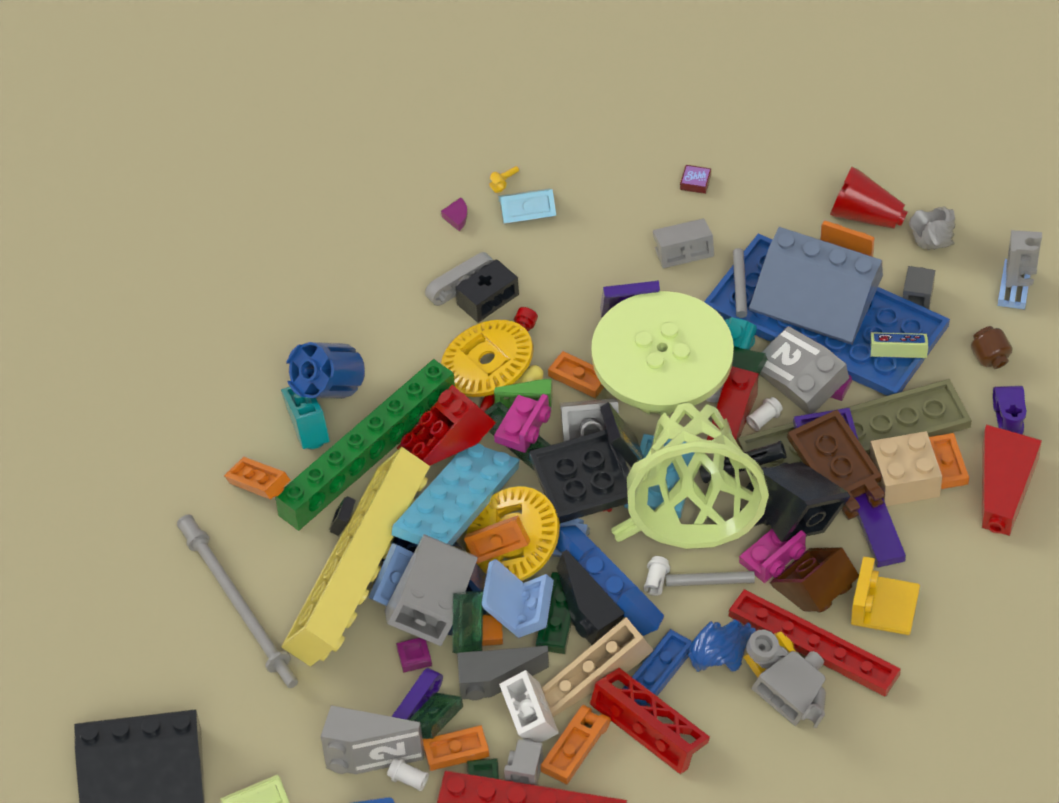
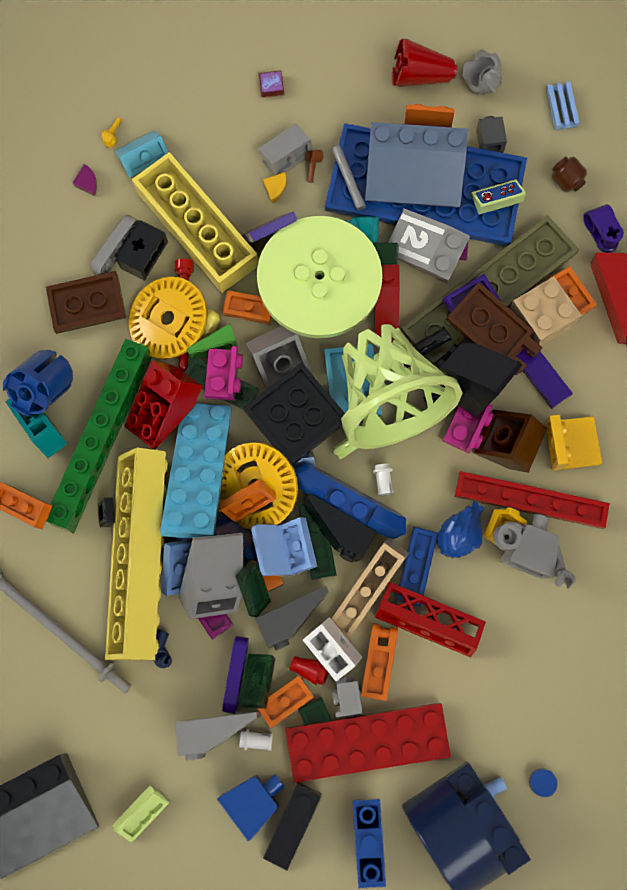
camera: 20 degrees left, 25 degrees up
(340, 660) = (162, 658): none -> dark blue arm
(406, 322) = (86, 302): none -> reddish brown plate
(497, 727) = (309, 669): none -> red cone
(554, 277) = (195, 222): none -> light yellow brick
(621, 435) = (315, 368): black tile -> none
(659, 271) = (275, 186): none -> yellow tile
(709, 257) = (312, 158): none -> dark orange hand
(710, 578) = (426, 466): light grey bar -> none
(769, 409) = (412, 295): white pin -> none
(1022, 257) = (567, 84): light grey hinge -> none

